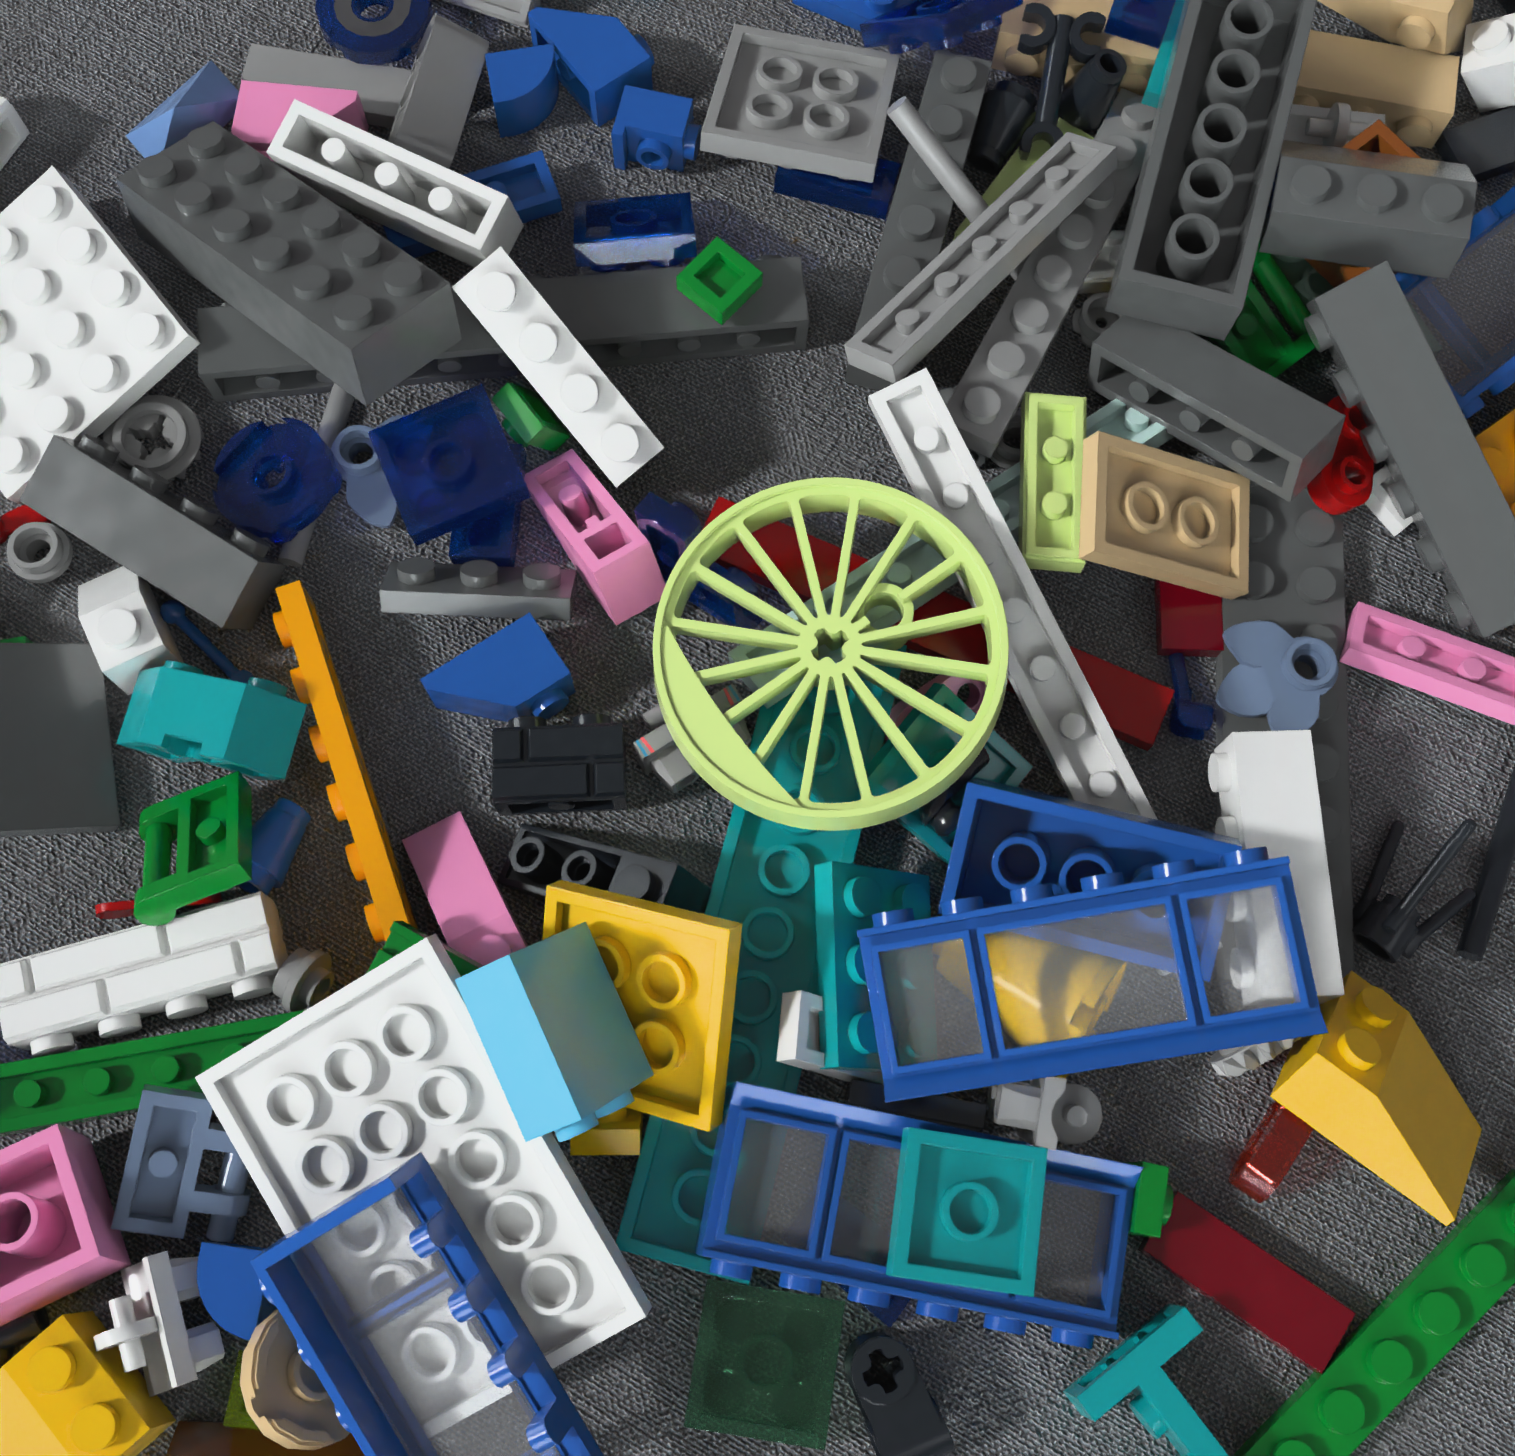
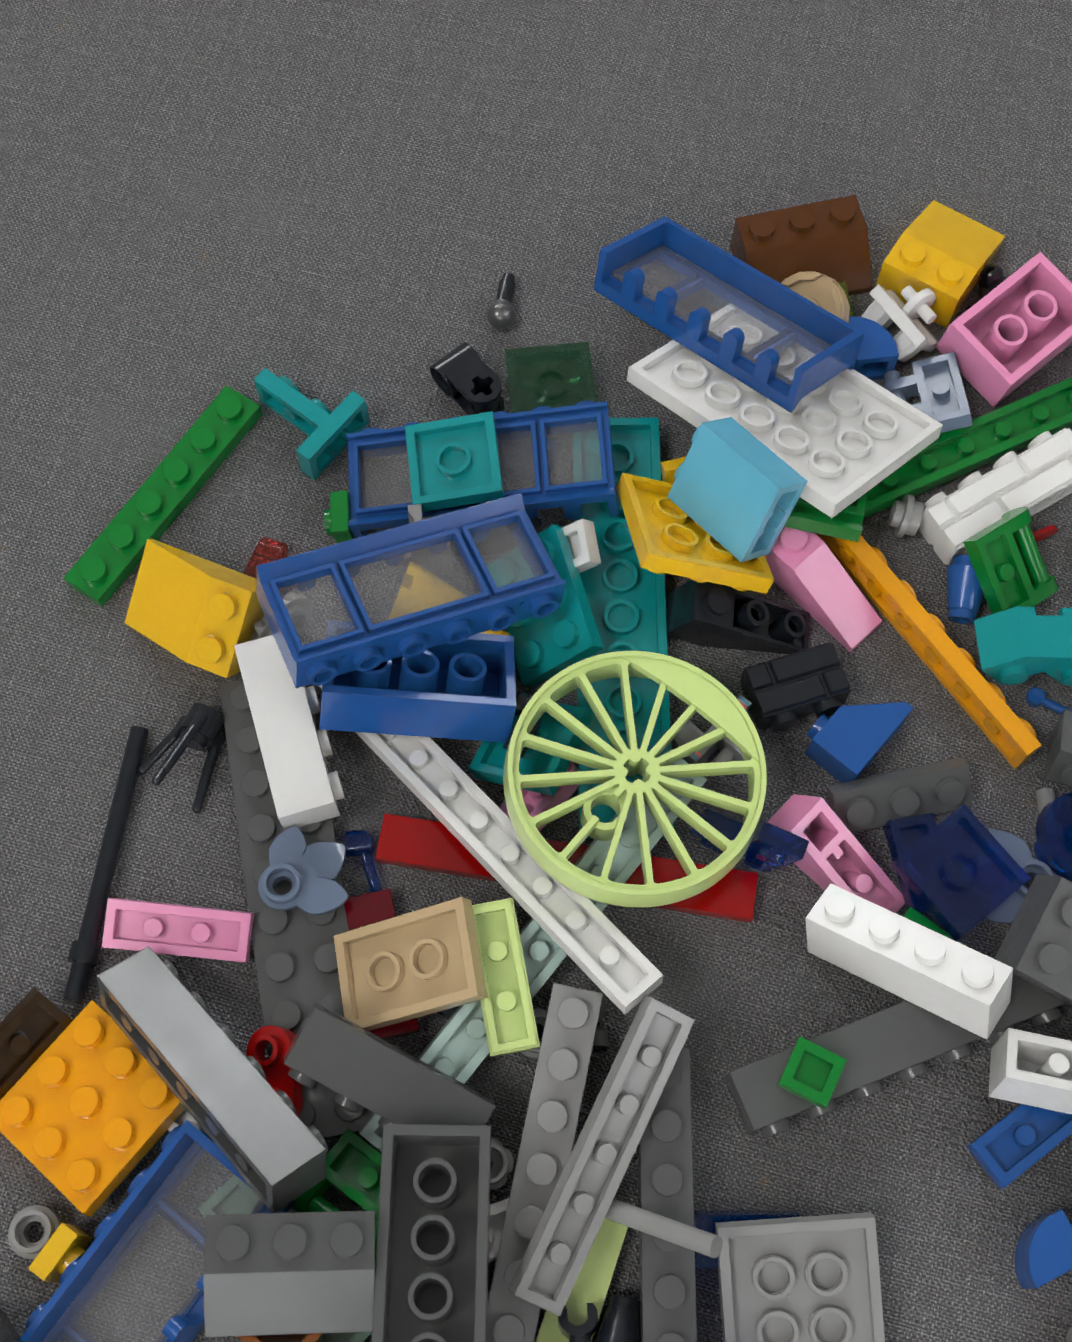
camera: 170 degrees right, 5 degrees down
(593, 57) = (994, 1299): blue slope -> none
(634, 230) = (898, 1124): clear blue plate -> none
(654, 130) = (918, 1240): blue brick -> none
(1249, 1284) = (266, 498): dark red tile -> none

